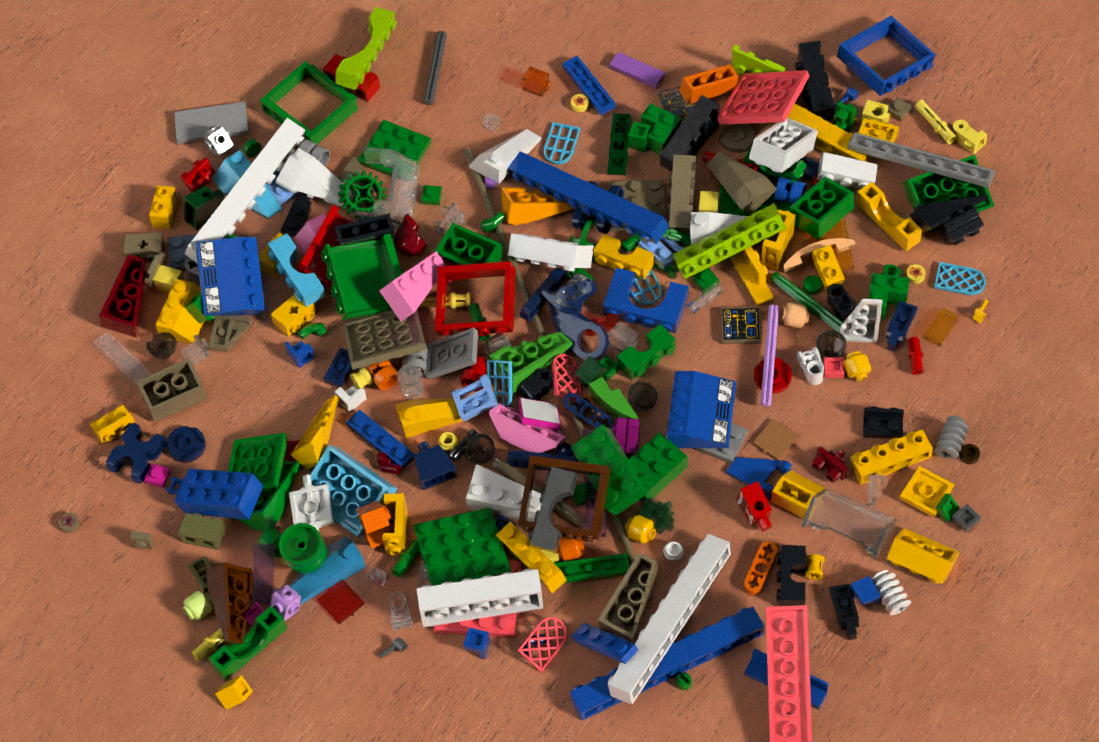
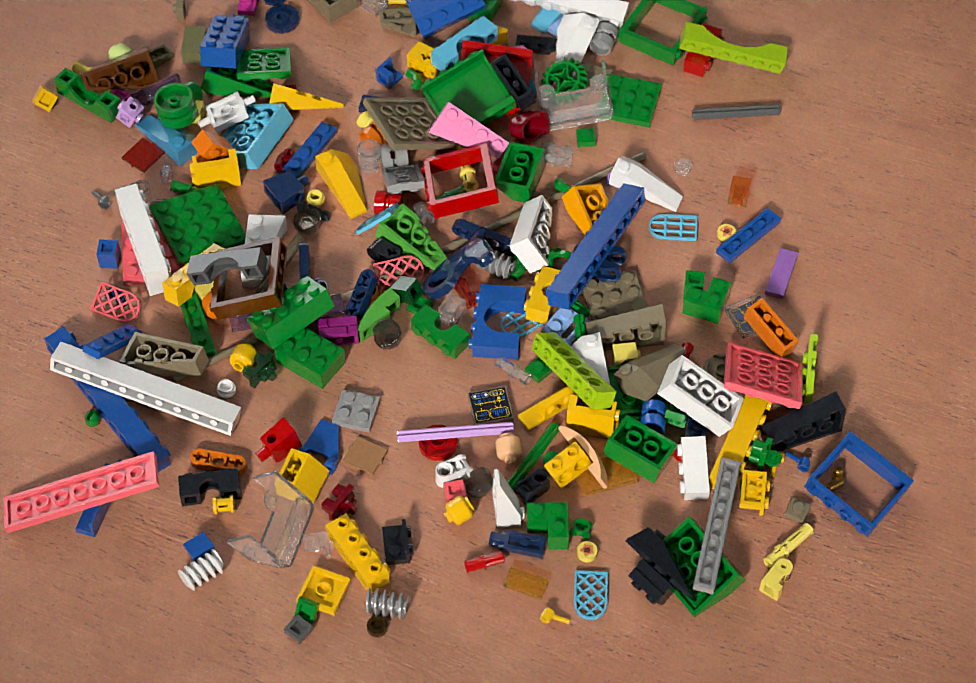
camera: 75 degrees right, 5 degrees down
(350, 398) = (346, 119): white panel -> none
(477, 402) = (353, 206): light blue plate -> none
(528, 437) = (336, 249): bright pink wedge -> none
(539, 413) = (350, 254): white tile -> none
(619, 144) = (675, 272): dark green slope -> none
(693, 132) = (704, 325): black wedge -> none
(701, 410) = (377, 381): blue slope -> none
(845, 609) = (177, 536): black hinge -> none
(873, 109) = (780, 479): light yellow brick -> none
(901, 230) = (659, 501): yellow arch -> none
(922, 555) = (250, 594): yellow slope -> none

